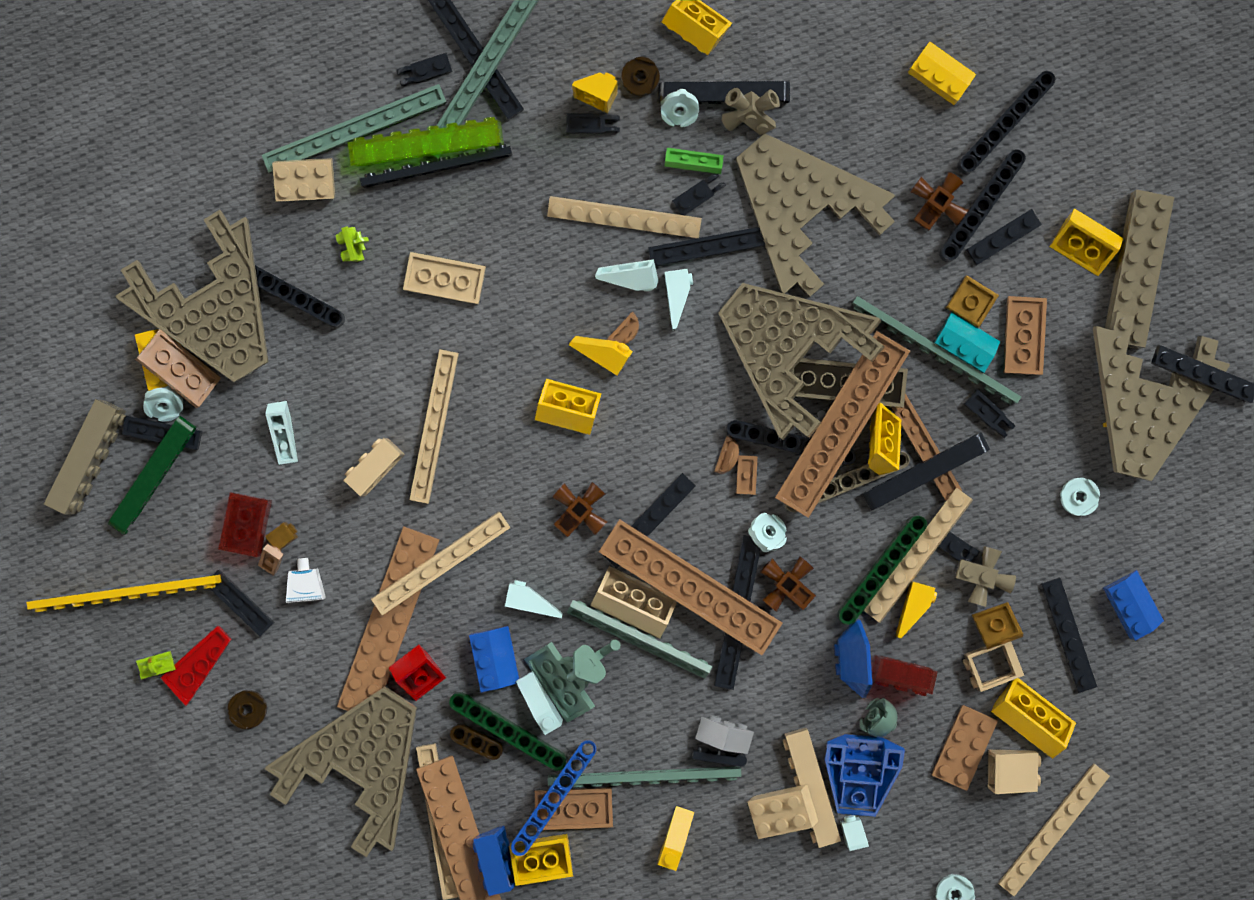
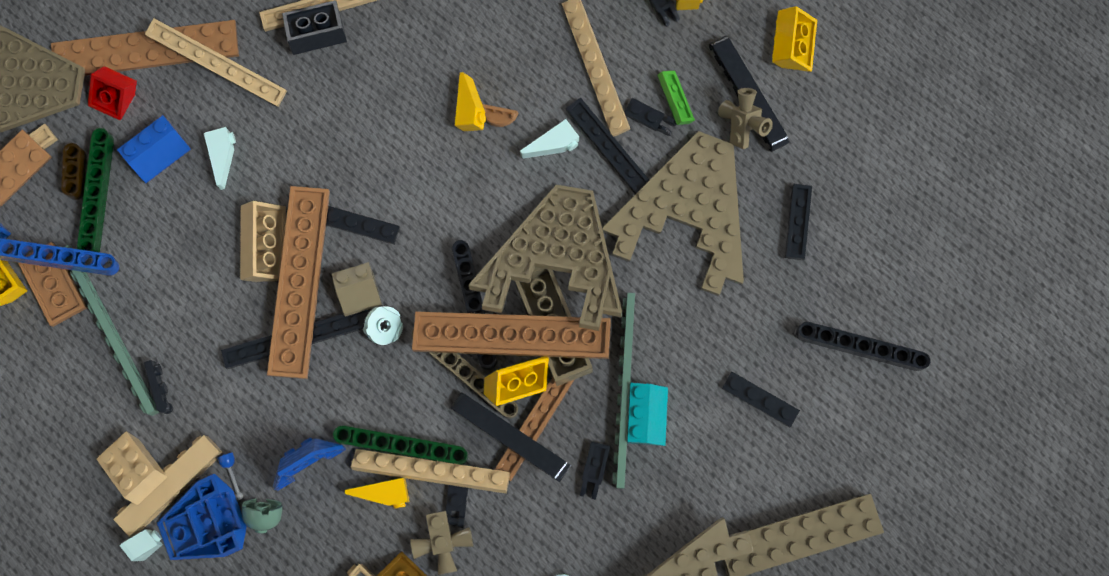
camera: 65 degrees right, 10 degrees down
(452, 456) = (314, 27): none -> black slope
(539, 703) = (131, 207): light aqua slope -> none
(567, 406) = (406, 100): yellow slope -> none
(569, 676) = (170, 218): sand green plate -> none
(579, 509) = (321, 154): reddish brown brick -> none
(633, 275) = (547, 95): light aqua slope -> none
(634, 67) = (728, 11): dark brown plate -> none
(644, 641) = (232, 271): sand green plate -> none
(675, 838) = (63, 387): yellow slope -> none
(679, 99) = (722, 61): light aqua plate -> none
(724, 539) = (356, 289): none -> dark tan slope
(724, 735) = (178, 381): light grey brick -> none
(728, 456) = (434, 257): medium nougat plate -> none
(746, 475) = (425, 282): medium nougat plate -> none
(788, 584) = (345, 368): reddish brown brick -> none
(817, 727) = (227, 461): none -> hinge
(866, 115) = (798, 222): none -> black plate
(903, 675) = (311, 513): clear red brick -> none
(938, 201) = (758, 322): reddish brown brick -> none
(942, 73) = (873, 267): yellow slope -> none
(972, 301) = (687, 401): pearl gold tile -> none
(987, 198) = (785, 360): black beam -> none
(1025, 335) = (682, 464): medium nougat plate -> none
(1086, 242) = (797, 475): yellow slope -> none

